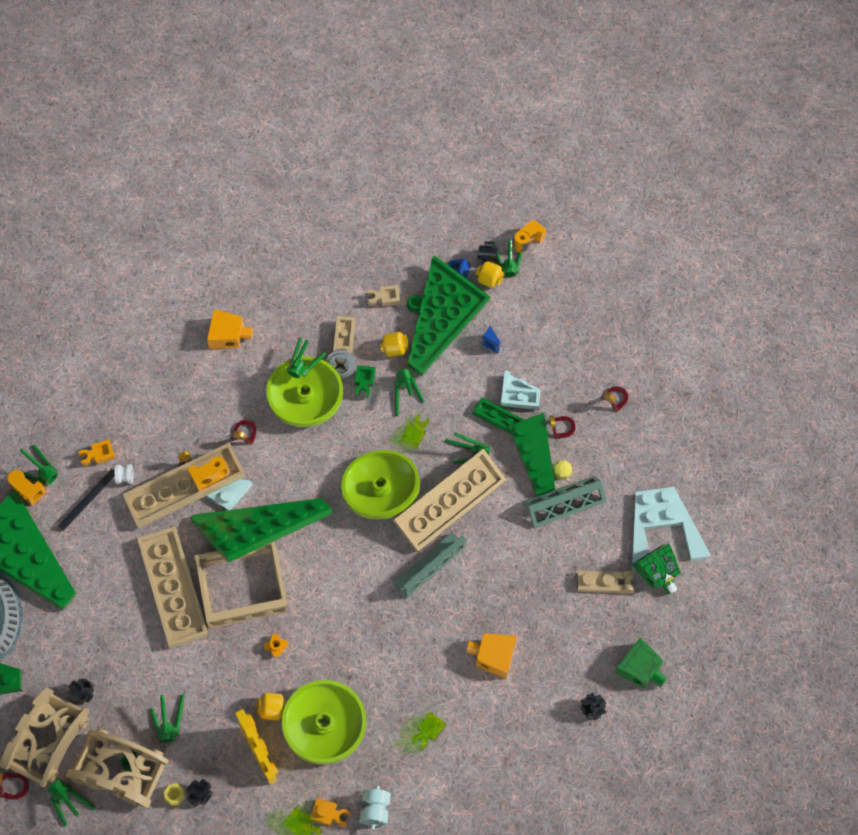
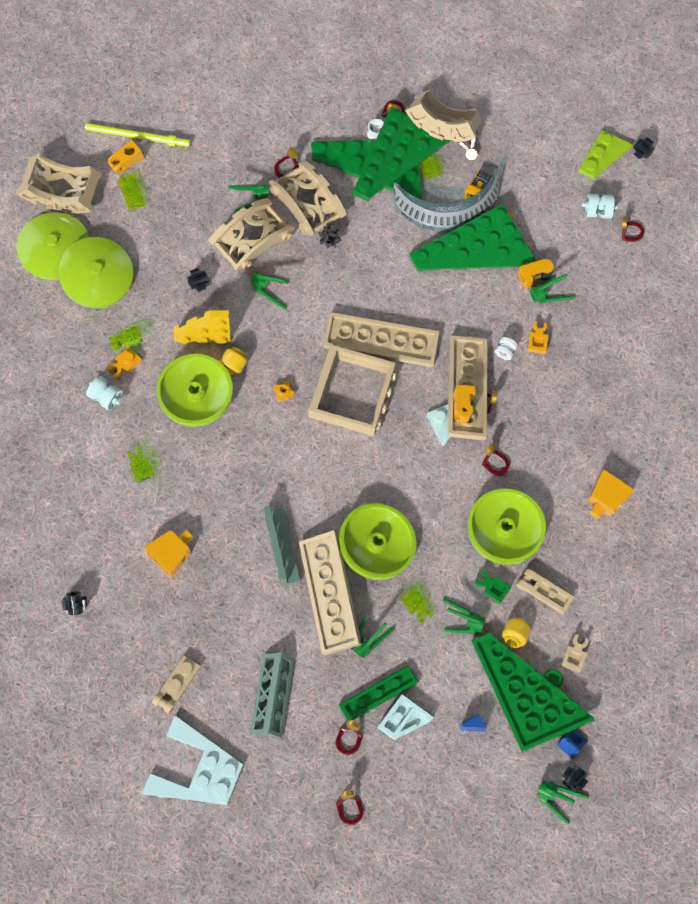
camera: 115 degrees right, 5 degrees up
(87, 499) = (498, 312): black bar -> none
(174, 794) = (209, 264): light yellow tile -> none
(250, 528) = (397, 417): green wing -> none
(297, 367) = (531, 526): green plant -> none
(349, 364) = (513, 574): light grey gear -> none
(490, 274) = (547, 765): yellow head -> none
(527, 235) = (575, 830): light orange leg -> none
(533, 446) = (335, 695): green wing -> none
(562, 470) = (304, 712): light yellow tile -> none
(641, 666) = (82, 665): green torso -> none
(659, 568) = (157, 733): green torso -> none

